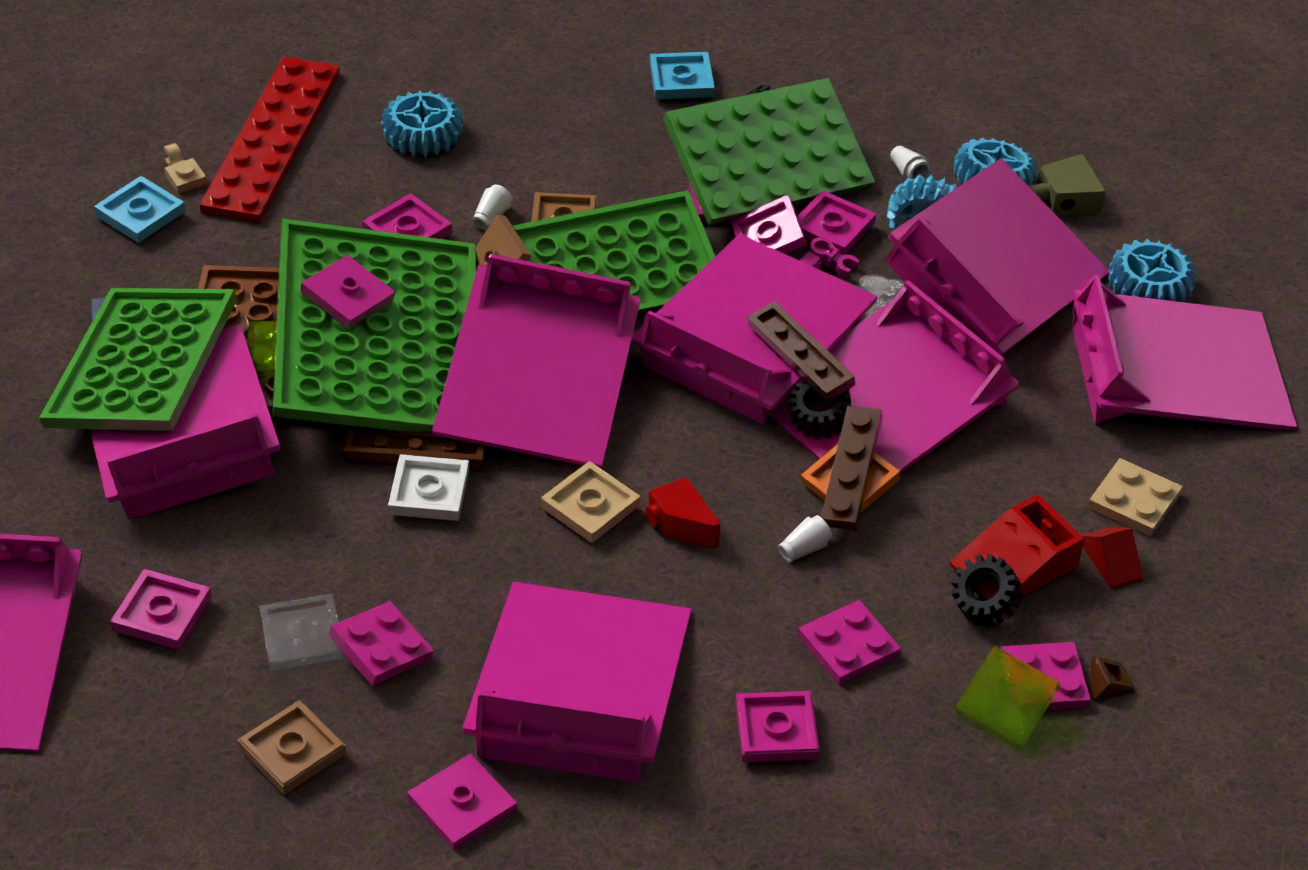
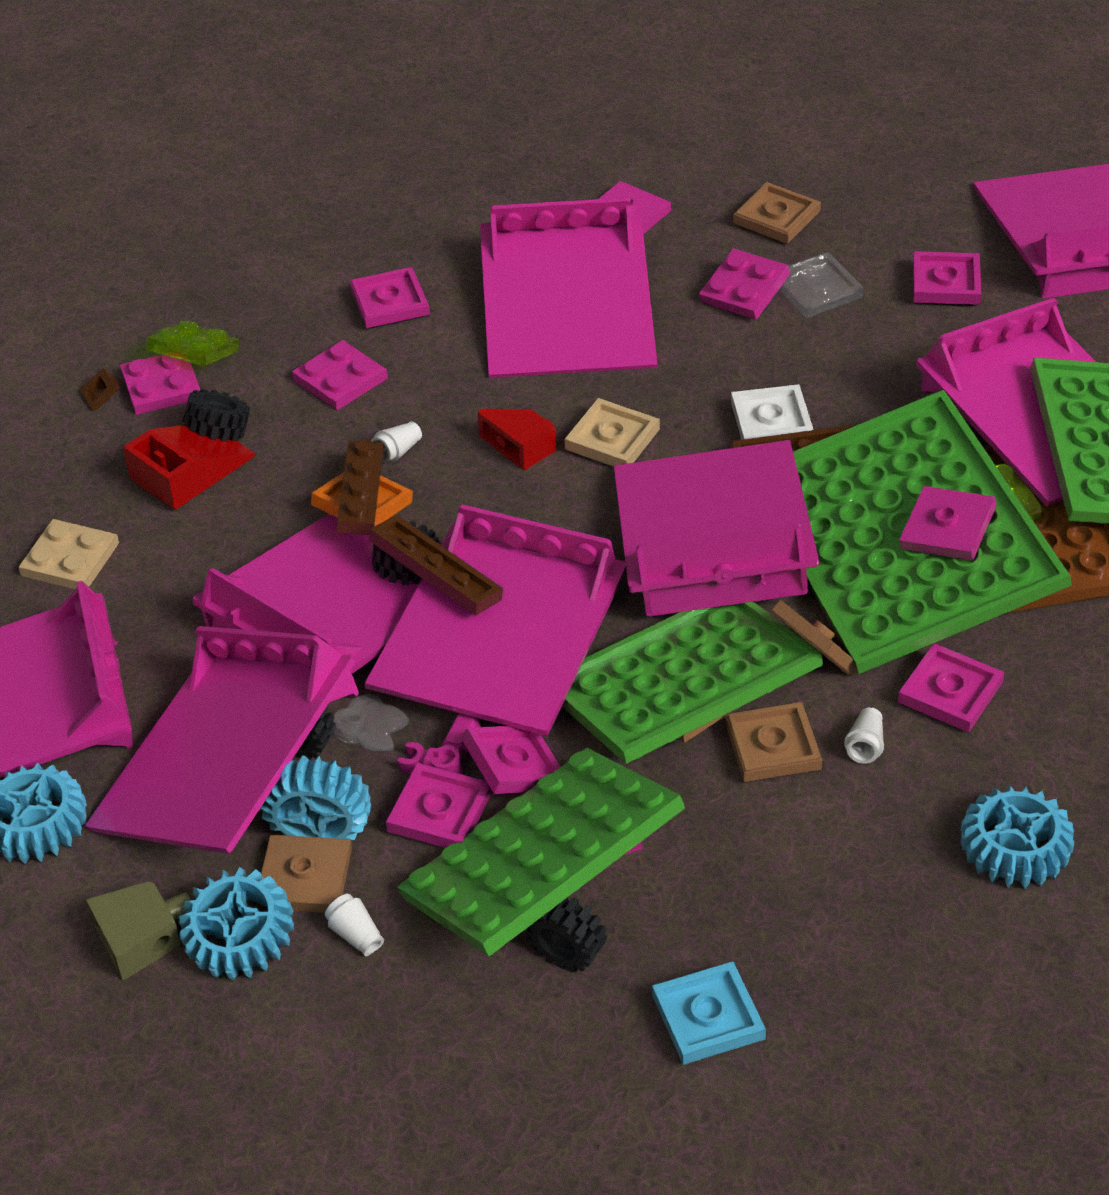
camera: 170 degrees right, 0 degrees up
(1114, 555) = (99, 493): red slope -> none

